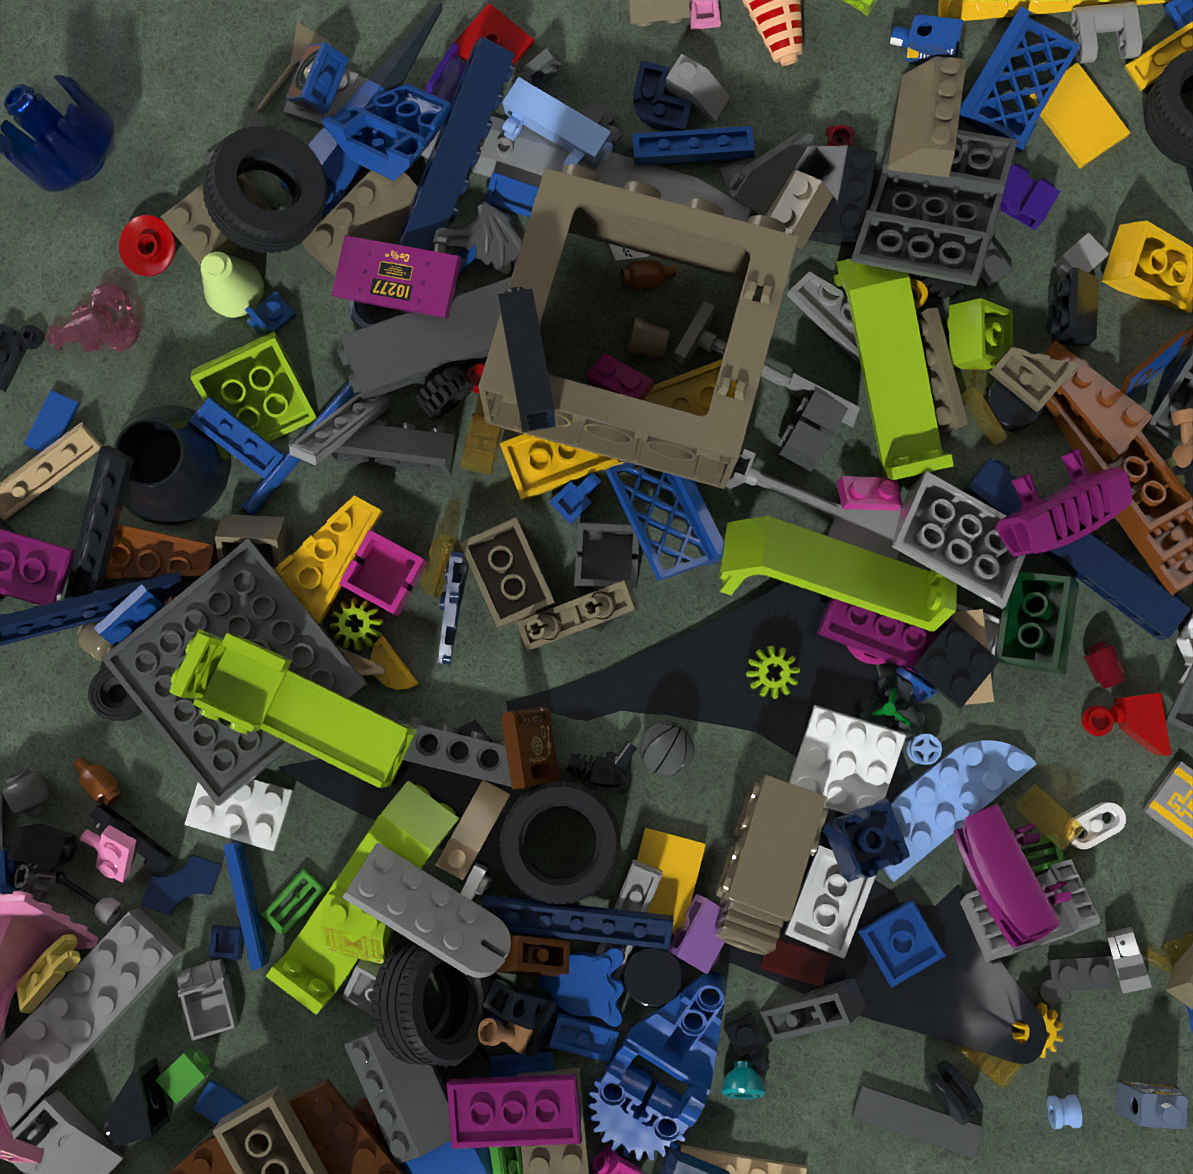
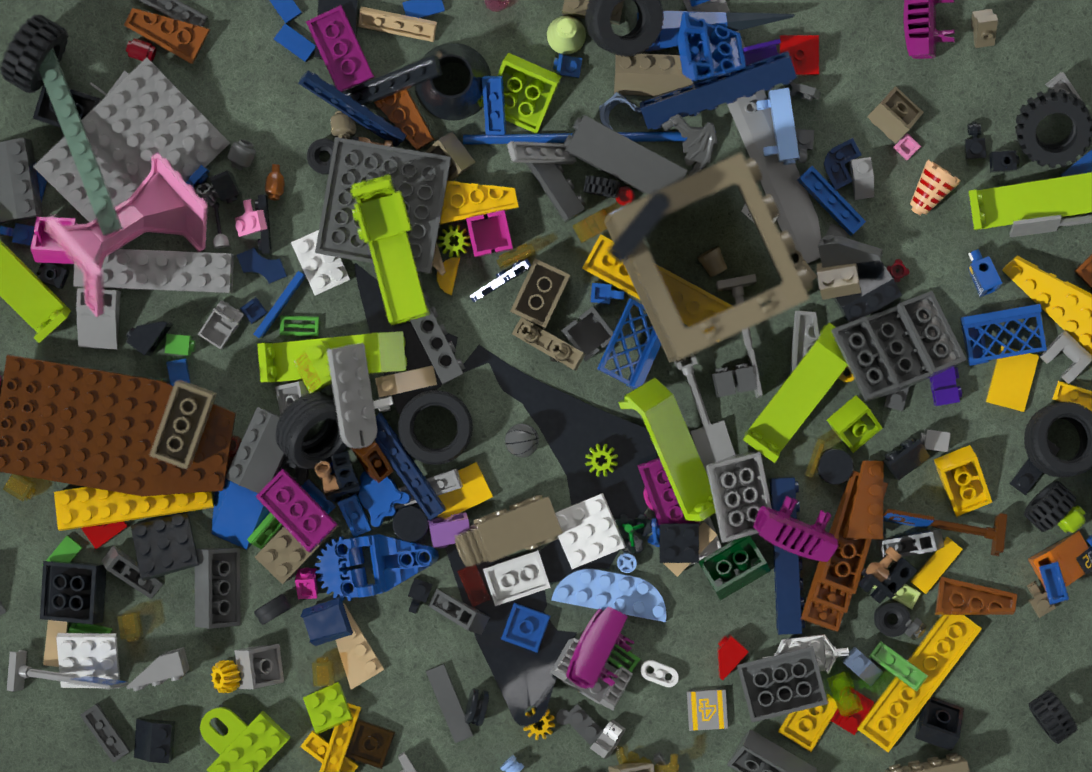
camera: 45 degrees right, 5 degrees up
(47, 972) = (171, 240): light yellow hinge -> none
(129, 615) = (366, 132): blue plate -> none
(396, 277) = (637, 116): magenta tile -> none
(511, 194) = (731, 135): blue tile -> none
(530, 747) = (467, 375): reddish brown container -> none
(606, 770) = (486, 419): black piece -> none
(619, 378) = (681, 266): dark pink plate -> none
(646, 274) = (746, 232): dark orange plant -> none
(743, 1082) = (397, 607): teal brick -> none
(866, 840) = (559, 570): dark blue slope -> none
(869, 493) = (728, 433): dark pink plate -> none
(928, 117) = (941, 305): dark tan slope -> none
(941, 374) = (818, 417): dark tan plate -> none
(996, 1069) = (505, 719): clear yellow beam -> none
(1032, 376) = (852, 464): dark tan wing -> none
(1049, 817) = (644, 648): clear yellow plate -> none
(1097, 720) = (711, 634): red plate -> none
(1105, 664) = (741, 615): dark red brick -> none

